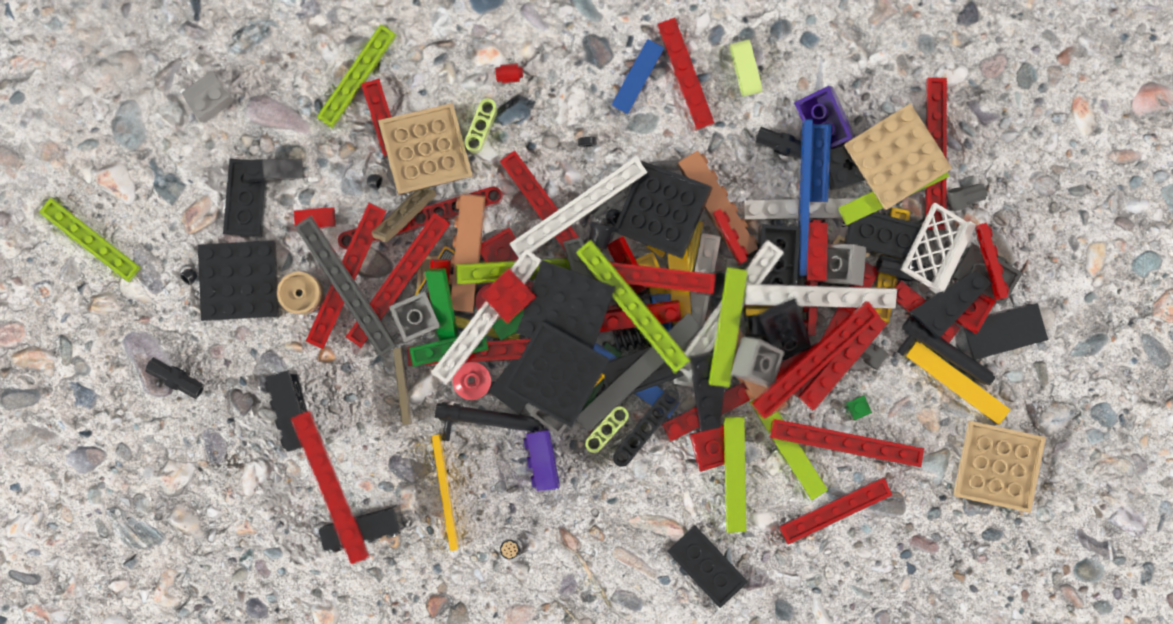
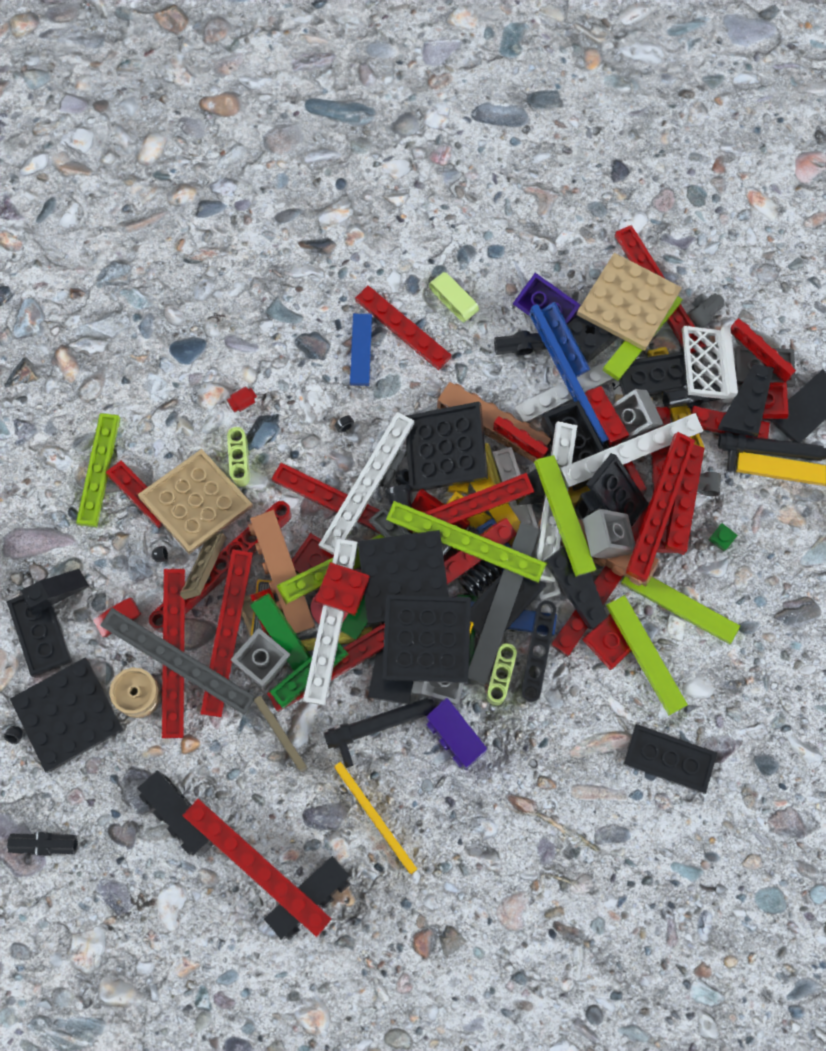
camera: 30 degrees left, 15 degrees down
(473, 390) = (357, 694): coral dish -> none
(509, 549) = (469, 843): tile -> none
(835, 510) = (758, 642): red plate -> none
(846, 443) = (731, 572): red plate -> none

